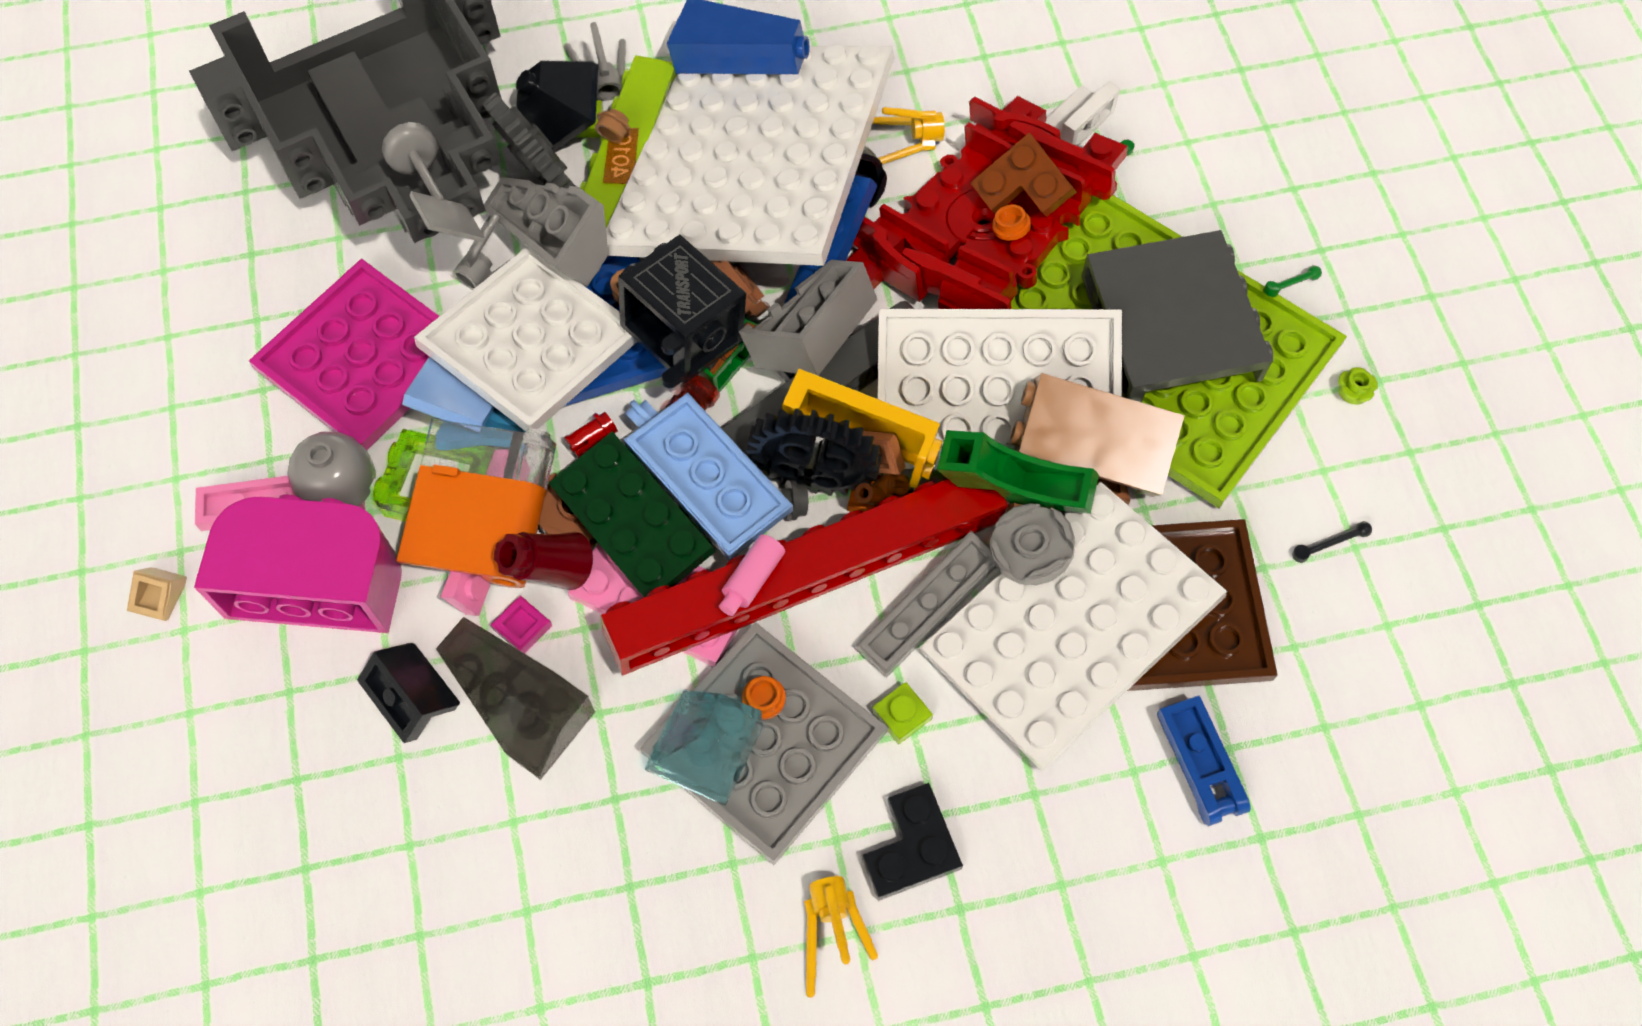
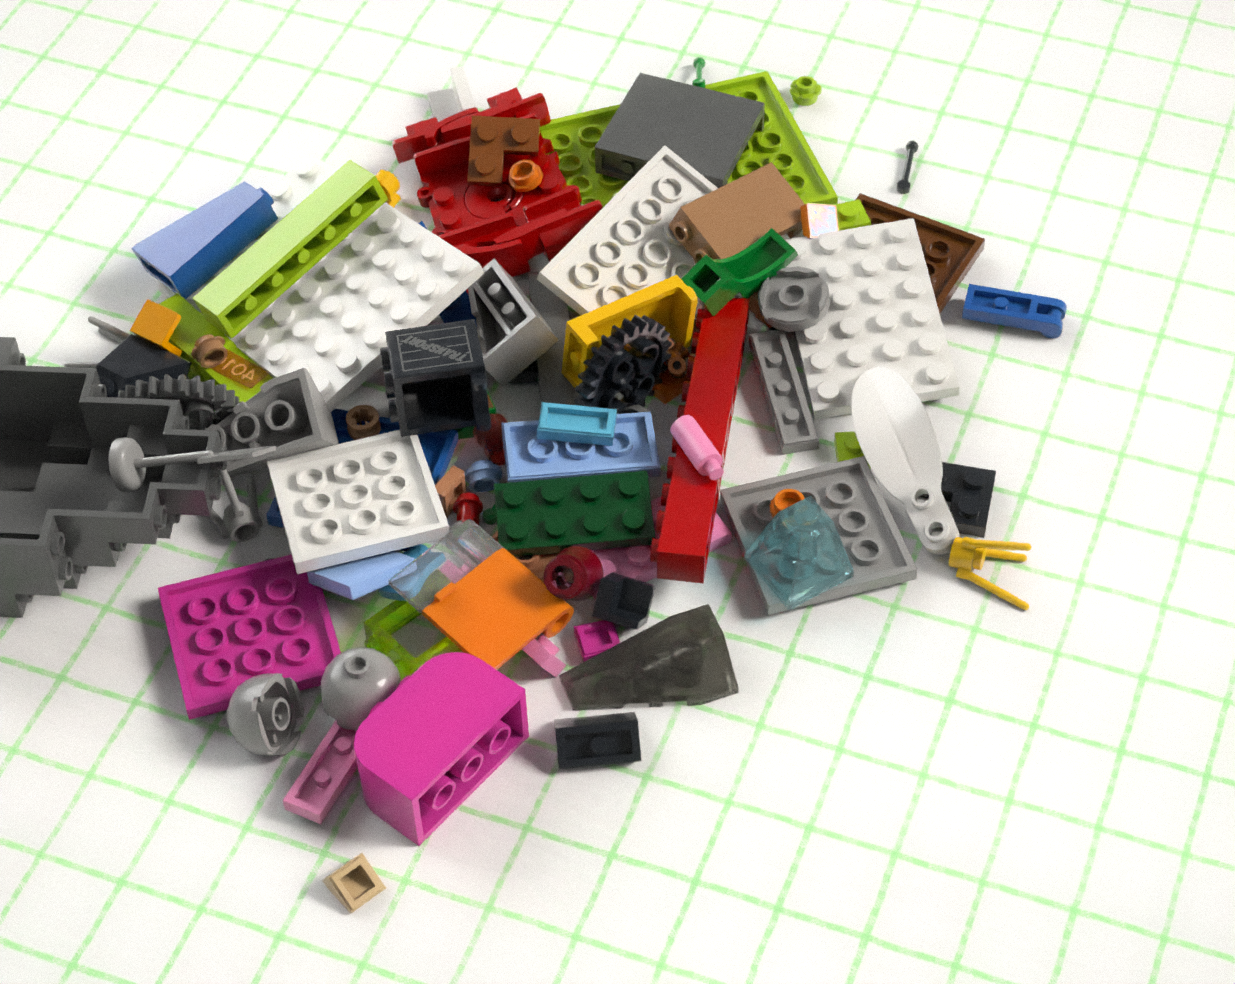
camera: 55 degrees left, 15 degrees down
(269, 420) = (265, 714): none -> light grey cylinder
(563, 619) = (623, 601): none -> black panel
(605, 399) = (450, 487): none -> nougat tile
(610, 72) = (157, 325): none -> light orange panel
(723, 454) = (577, 424): none -> medium azure tile
(754, 104) = (290, 248): none -> lime brick
(908, 761) = (903, 452): none -> white plant
(1156, 505) = (818, 219): none -> tile
(1193, 529) = (851, 215): none -> lime plate

